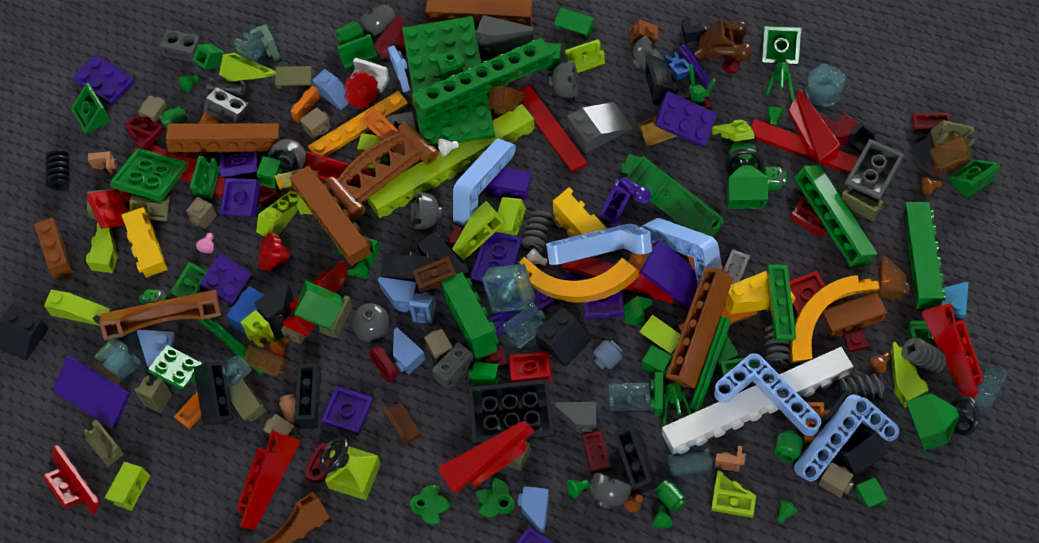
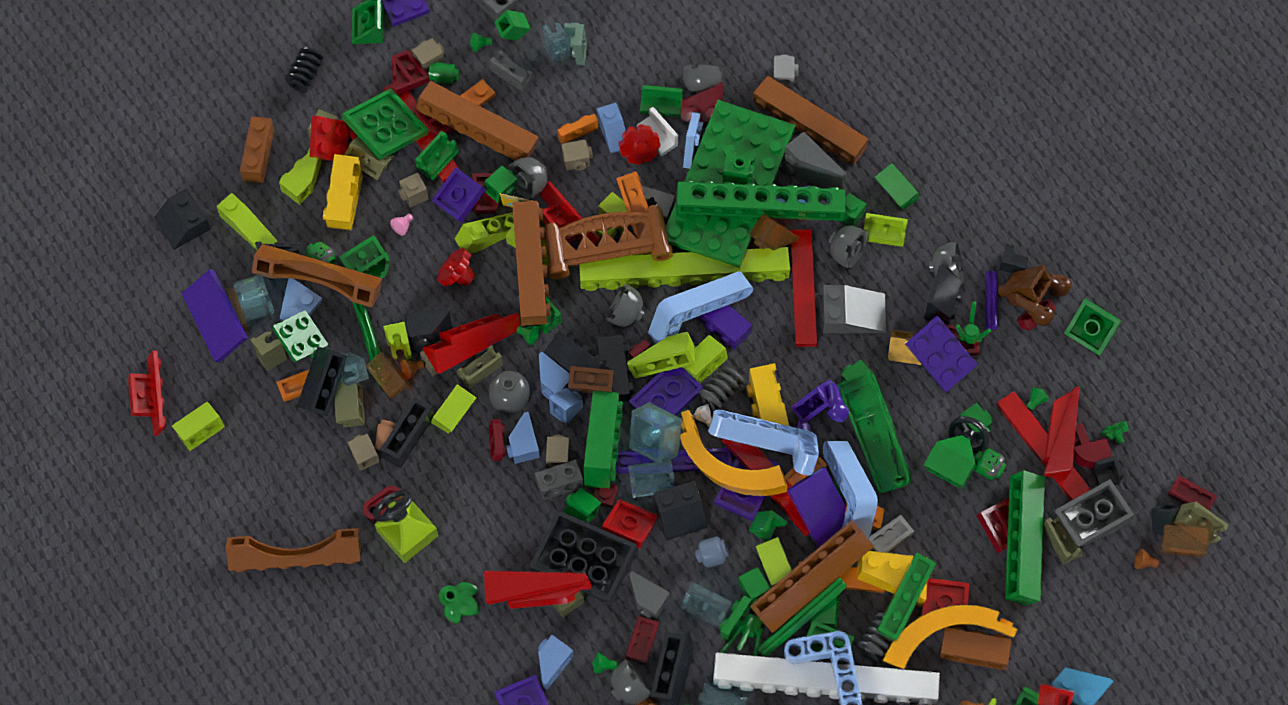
camera: 25 degrees right, 5 degrees up
(102, 160) = (351, 83): nougat bracket -> none
(103, 444) = (199, 372): olive hinge -> none
(225, 107) = (498, 90): dark grey brick -> none
(226, 278) = (398, 271): dark purple plate -> none
(238, 164) = (477, 159): dark purple plate -> none
(240, 68) = (536, 57): lime slope -> none
(243, 307) = (398, 310): blue brick -> none
(265, 477) = (324, 489): red wedge -> none
(294, 76) = (584, 93): olive hinge -> none
(318, 305) = (465, 349): green slope -> none
(334, 359) = (453, 409): none -> lime hinge
(347, 410) = (436, 467): dark purple plate -> none
(349, 33) = (664, 75): green brick -> none
(354, 127) = (606, 180): light orange plate -> none
(401, 423) = (479, 508): reddish brown panel -> none
(446, 146) = (684, 252): white rock -> none
(493, 498) = (519, 629): green plate -> none
(641, 29) = (963, 234): dark orange bracket -> none
(679, 67) = (973, 291): blue plate -> none
(735, 131) = (983, 394): lime wing -> none
(781, 73) = (1072, 357): green plant -> none
(825, 86) = (1116, 399): clear light blue brick -> none
(847, 107) = (1115, 431): none -> green plant
(855, 340) = (962, 674): dark red plate -> none
(892, 281) = (1036, 637): clear orange slope -> none
(923, 255) = (1084, 628): green brick -> none
(974, 176) = (1195, 576): green slope -> none

